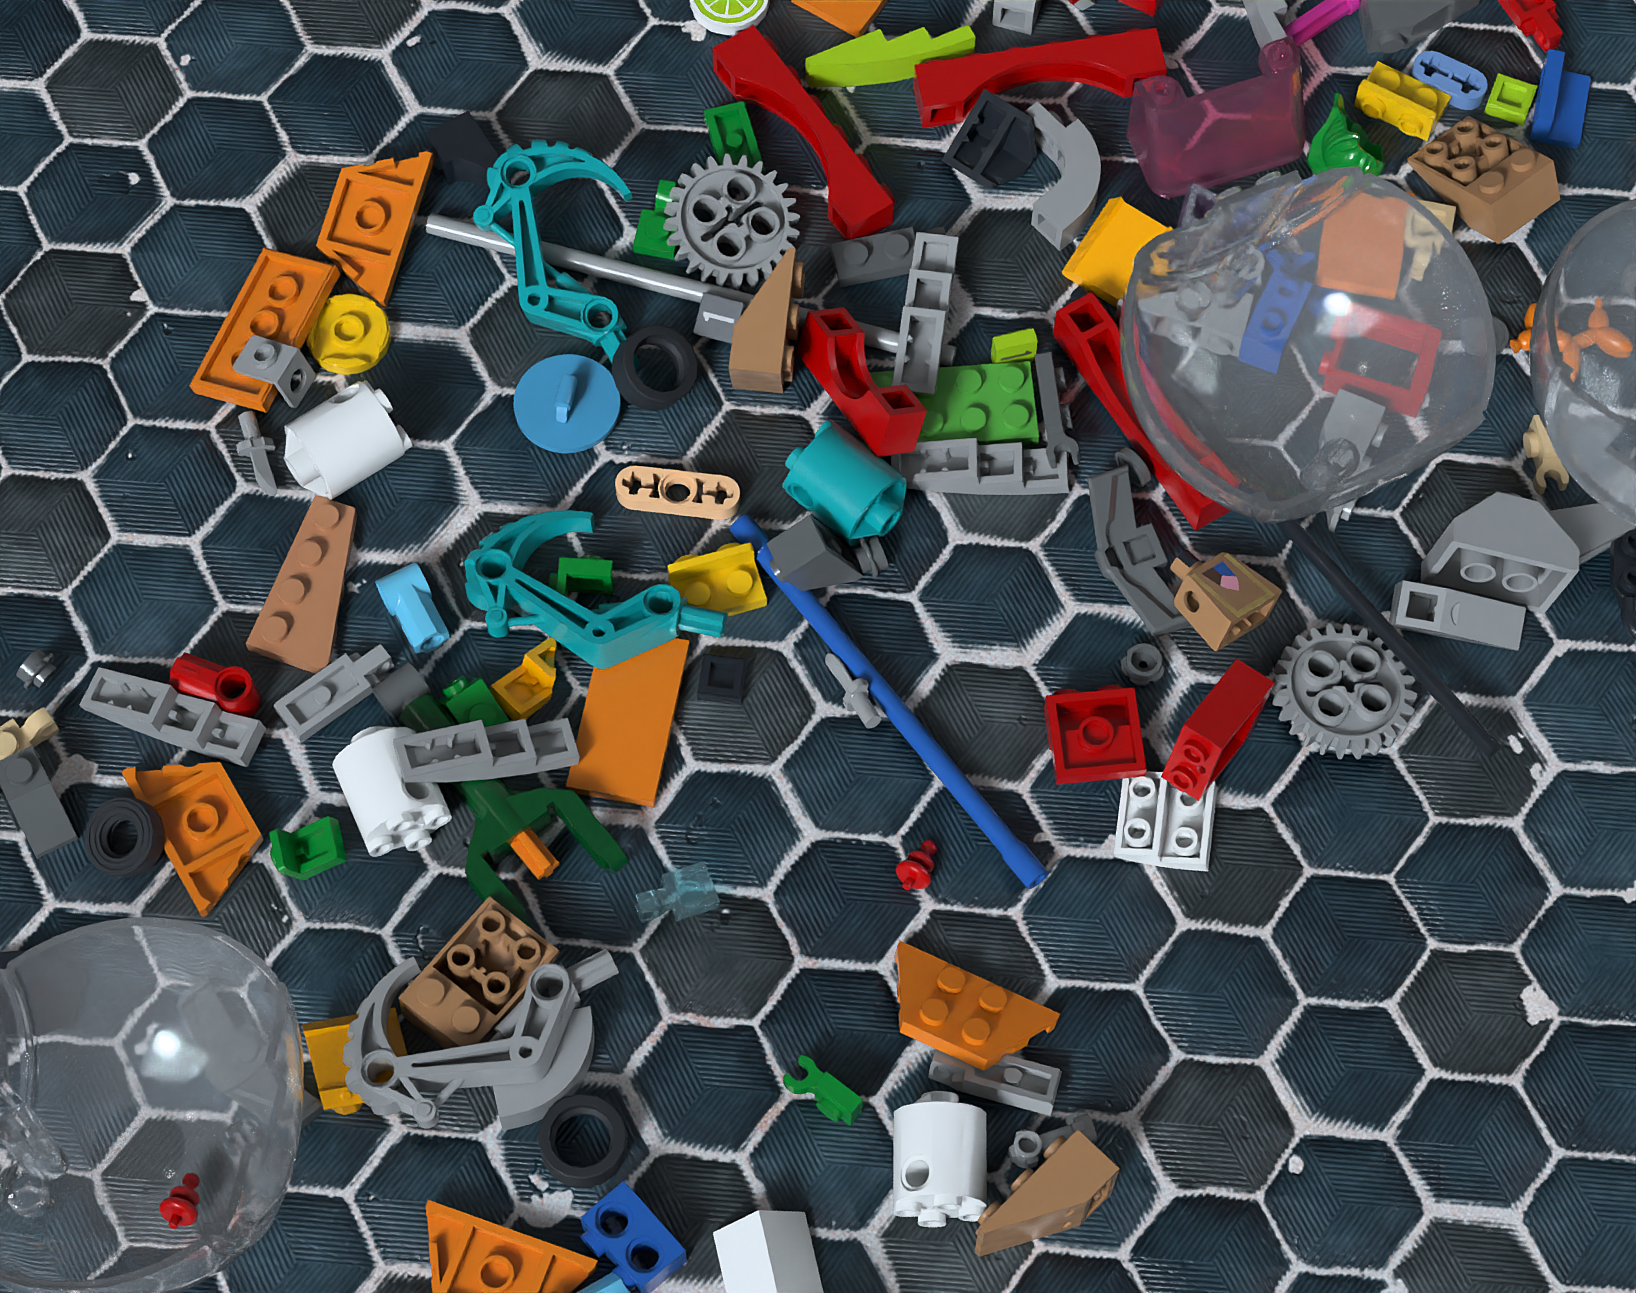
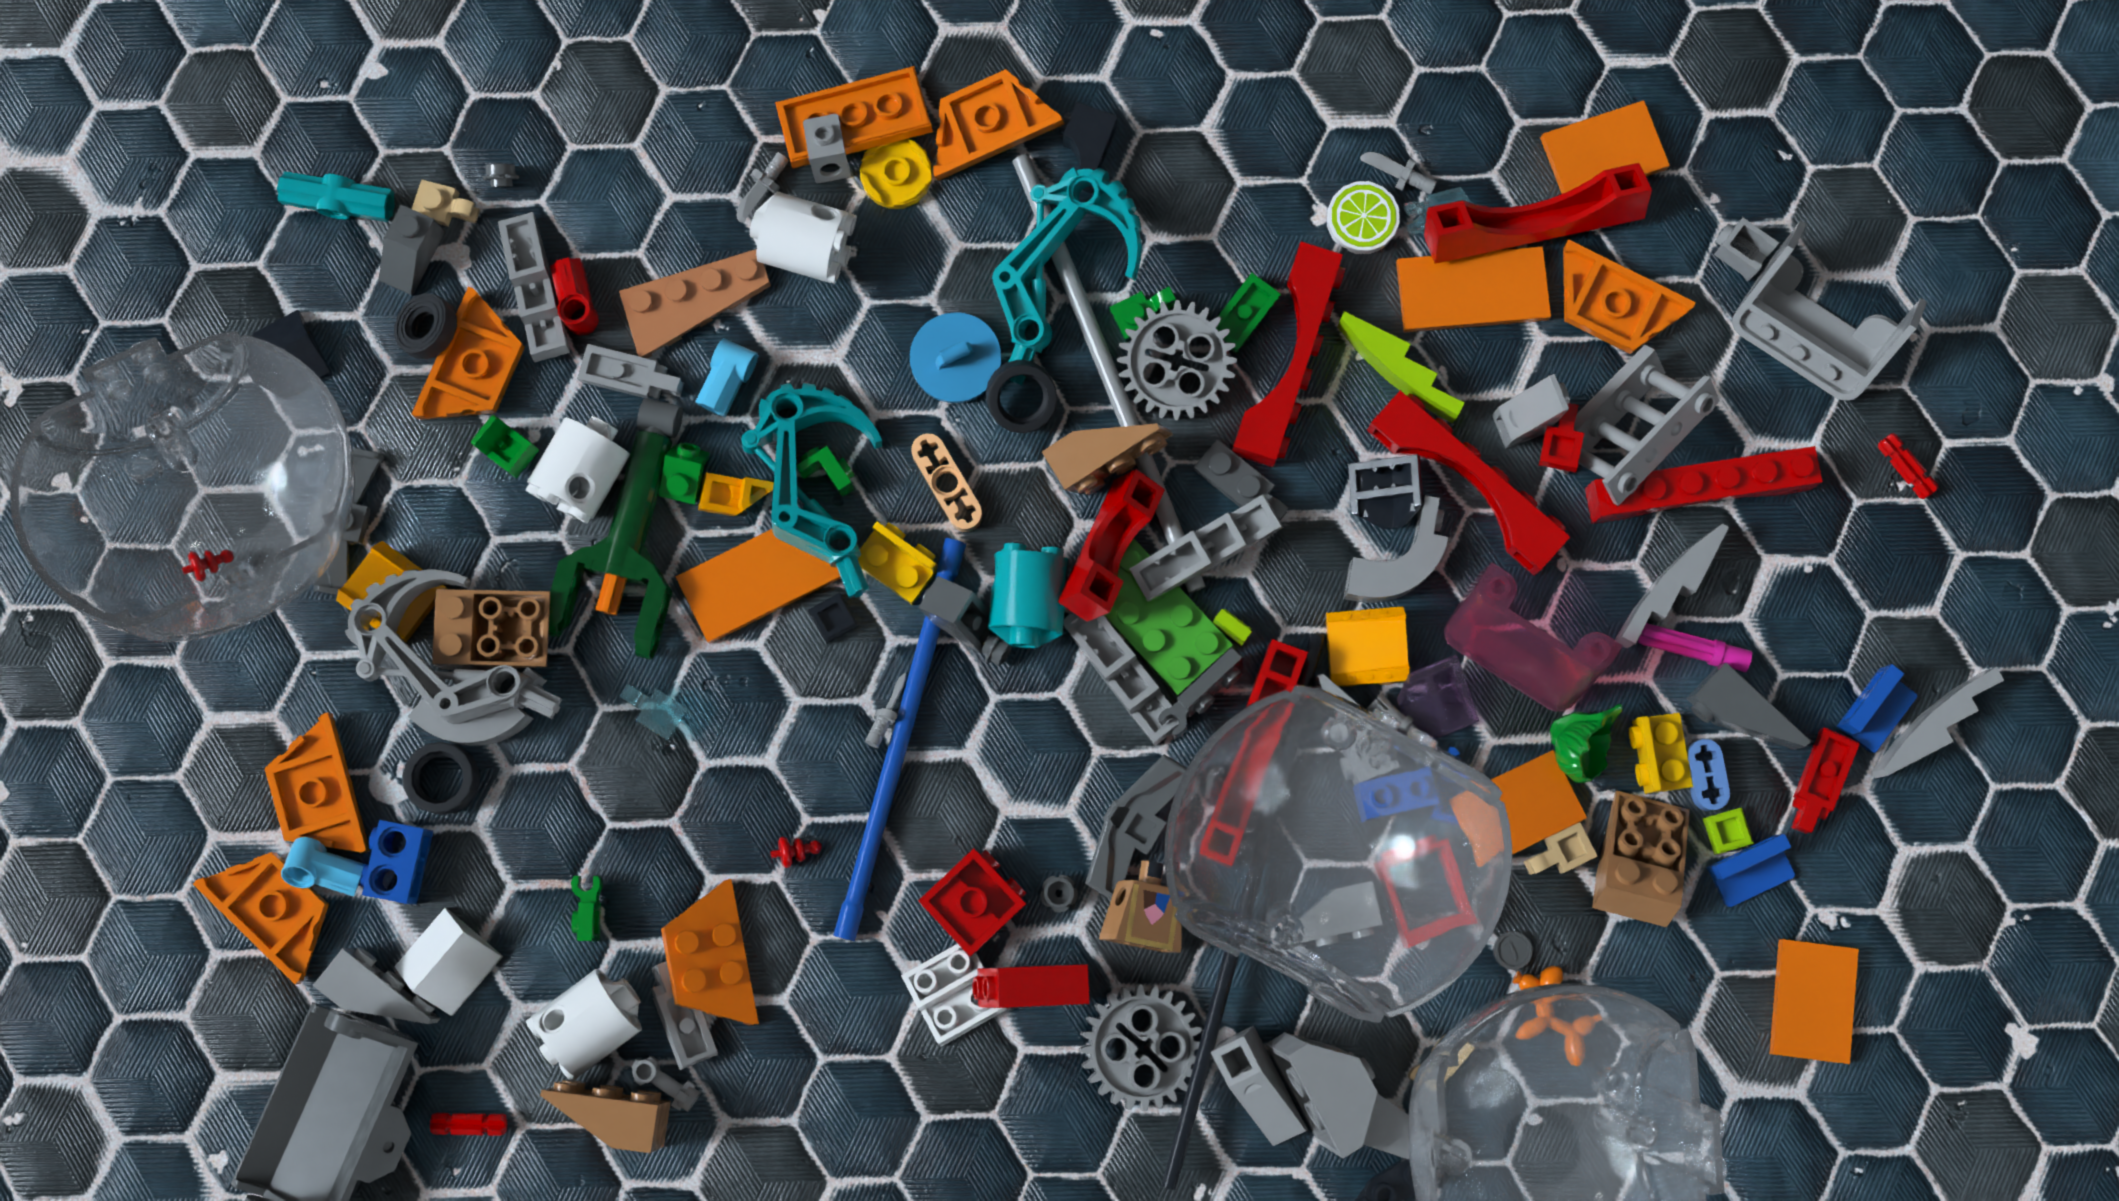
camera: 55 degrees right, 15 degrees up
(483, 753) = (645, 509): light grey slope -> none
(718, 316) = (1099, 408): tile -> none

